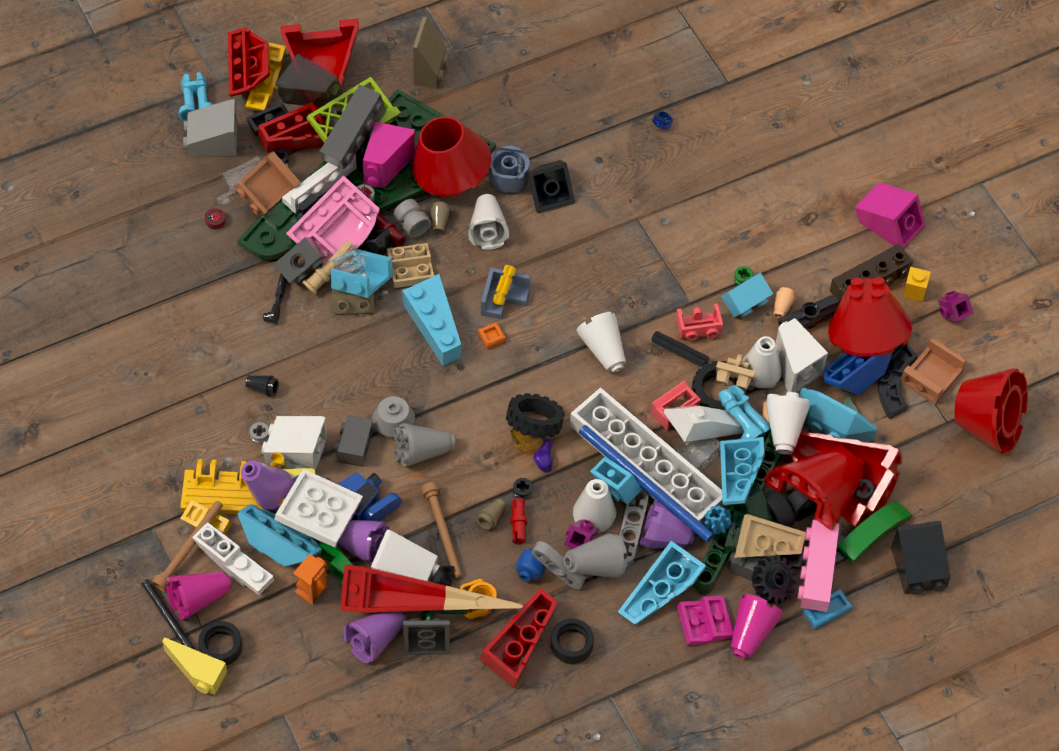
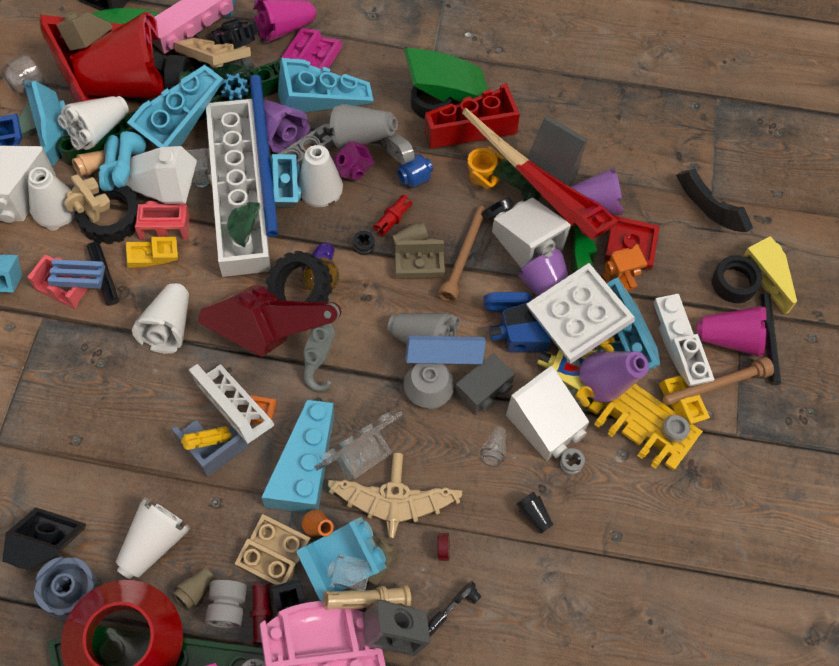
camera: 145 degrees left, 5 degrees up
(200, 492) = (675, 428): none -> light grey tile
(277, 694) = (724, 214): none -> black tile
(306, 328) = (443, 547): none -> dark red tile
(317, 404) = (494, 449): none -> clear cone
(320, 620) = (630, 232): none -> red plate
(360, 337) = (394, 500): none -> tan bar
(392, 287) = (317, 524): none -> orange cone
(394, 425) = (445, 349): none -> medium blue tile
(401, 341) = (361, 453): none -> clear bracket
(469, 498) = (419, 258): none -> dark tan bracket
(511, 310) = (228, 406): none -> white fence
(536, 370) = (263, 323): none -> dark red slope
(567, 650) = (444, 75): none -> green slope
(609, 420) = (242, 221): none -> clear green tile
(664, 382) = (157, 252): none -> yellow slope
(696, 313) = (76, 269): none -> medium blue tile
(868, 477) = (82, 29): none -> dark tan slope
(893, 433) = (20, 70): none -> clear helmet

